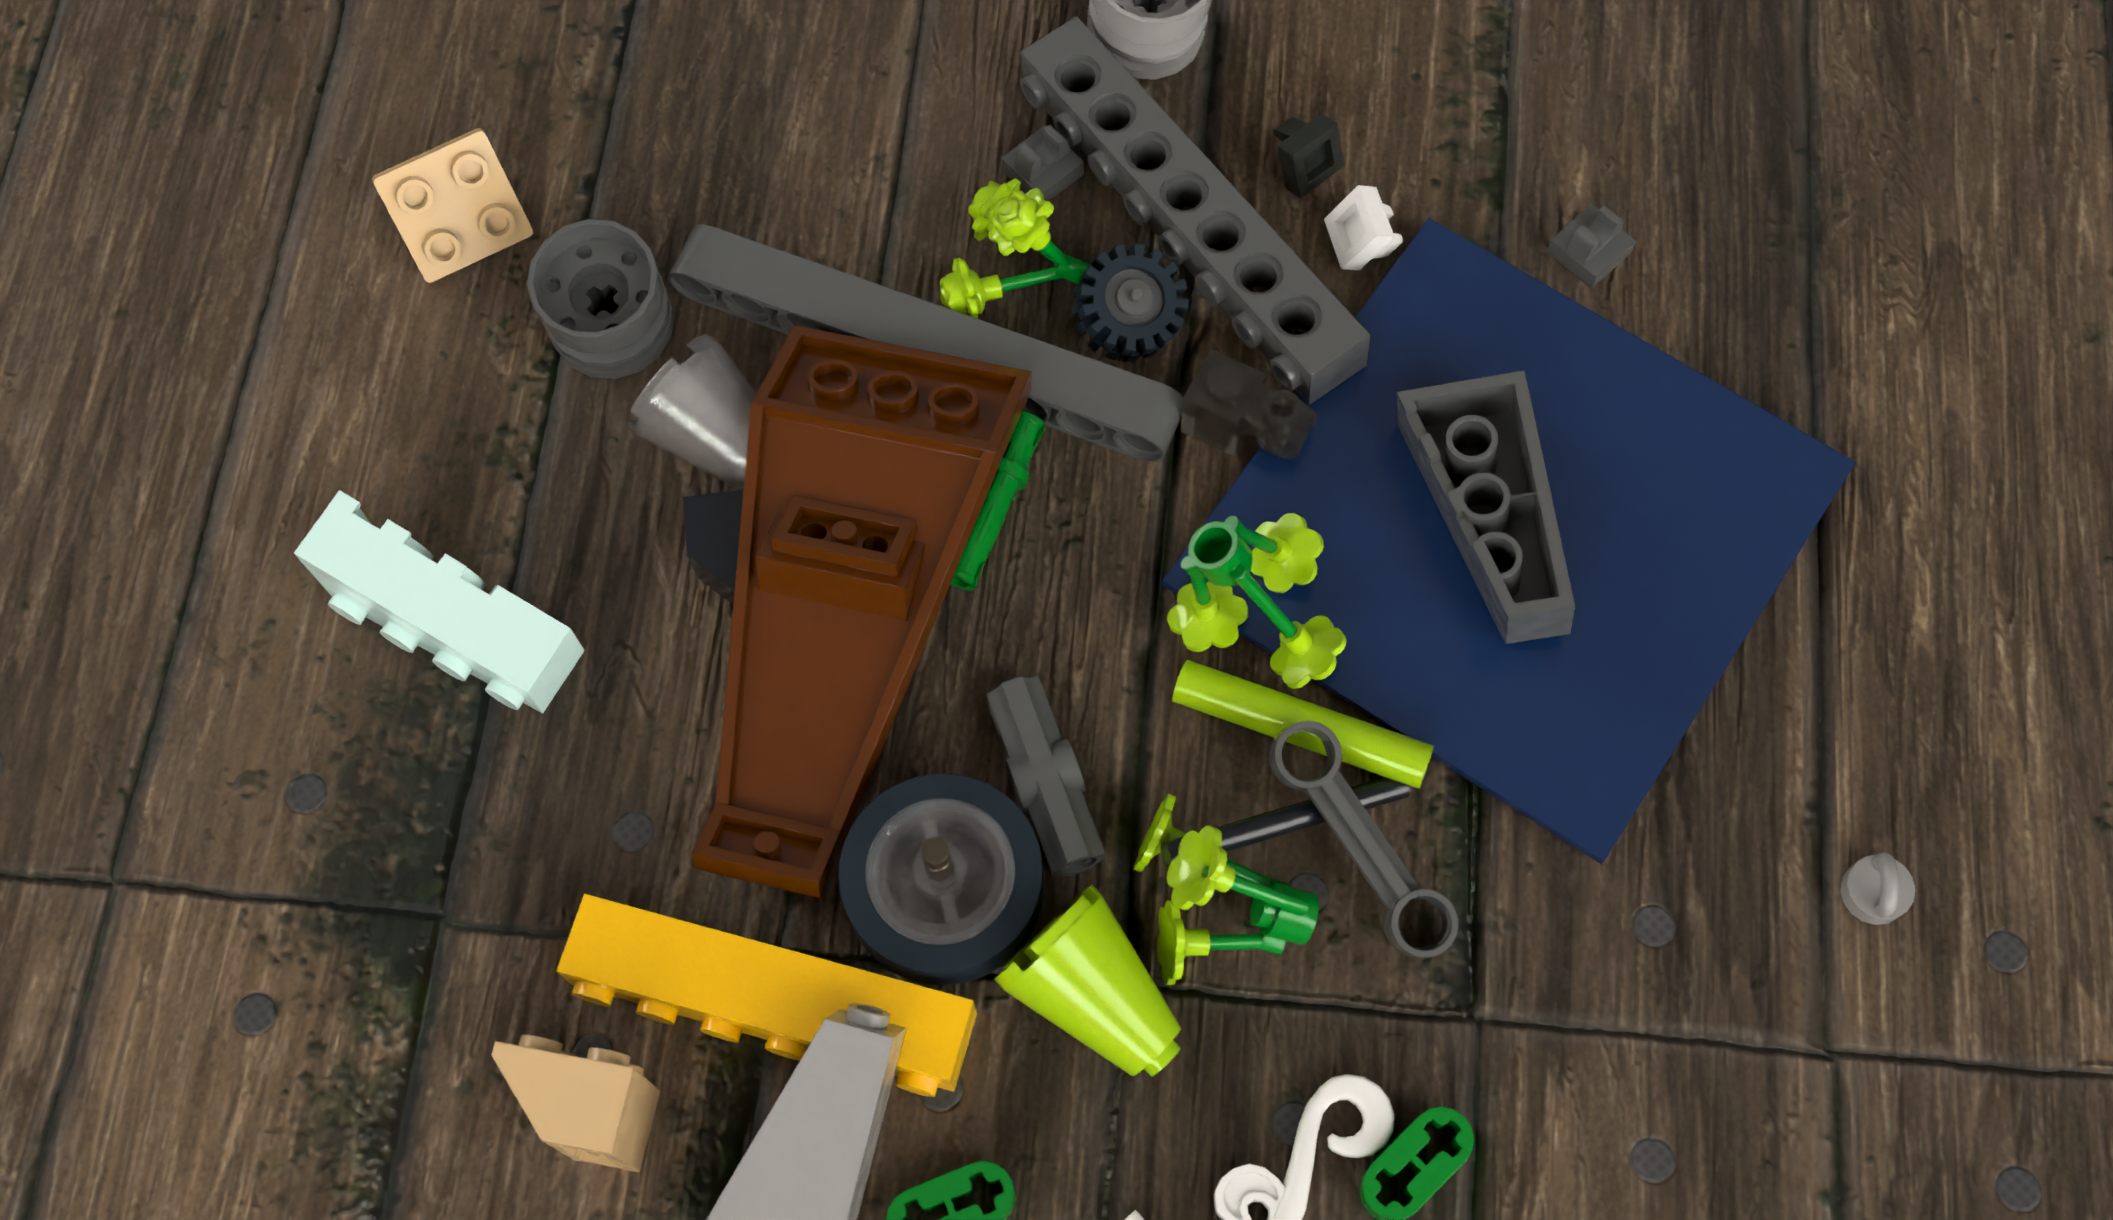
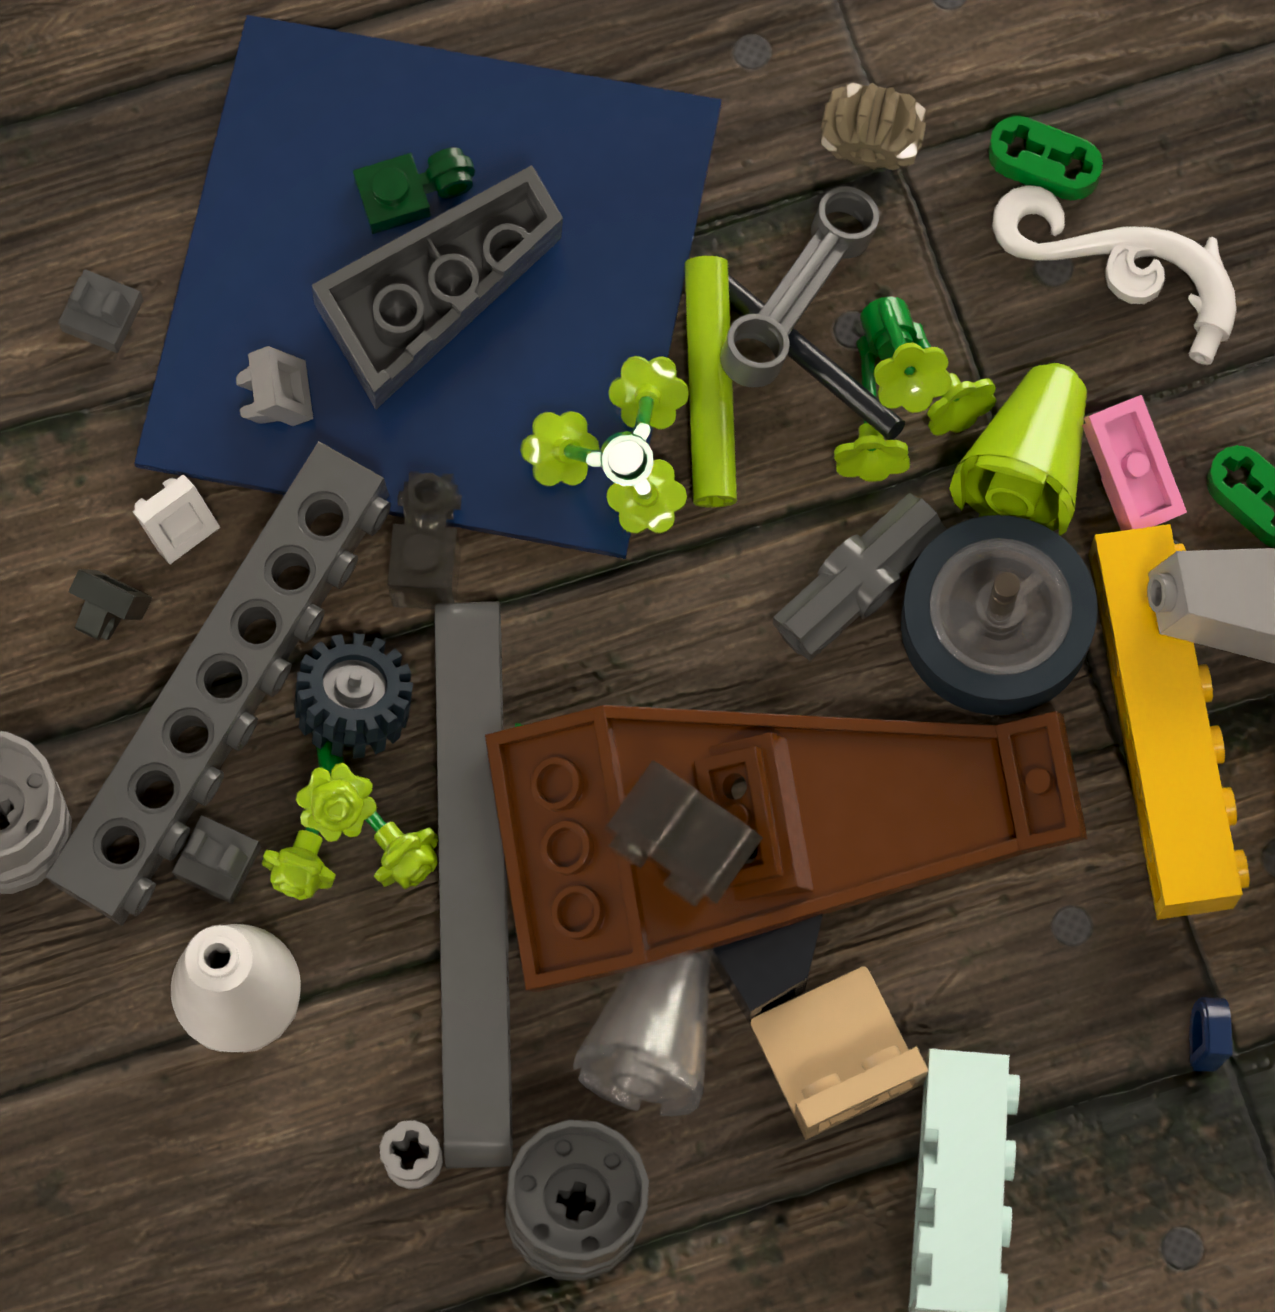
camera: 115 degrees left, 5 degrees up
(460, 893) = (1210, 1034): none -> dark blue tile
(615, 568) = (837, 1052): none -> tan bracket
(716, 201) = (399, 1139): none -> light grey bush
(838, 460) = (681, 835): none -> clear smoke brick
(925, 125) = (235, 988): none -> white cone
(1034, 1083) = (1133, 465): none -> bright pink plate
(1446, 339) = (277, 386): none -> light grey tile
(1510, 986) = (873, 126): none -> dark tan gear
(1615, 517) = (396, 192): none -> dark green plate

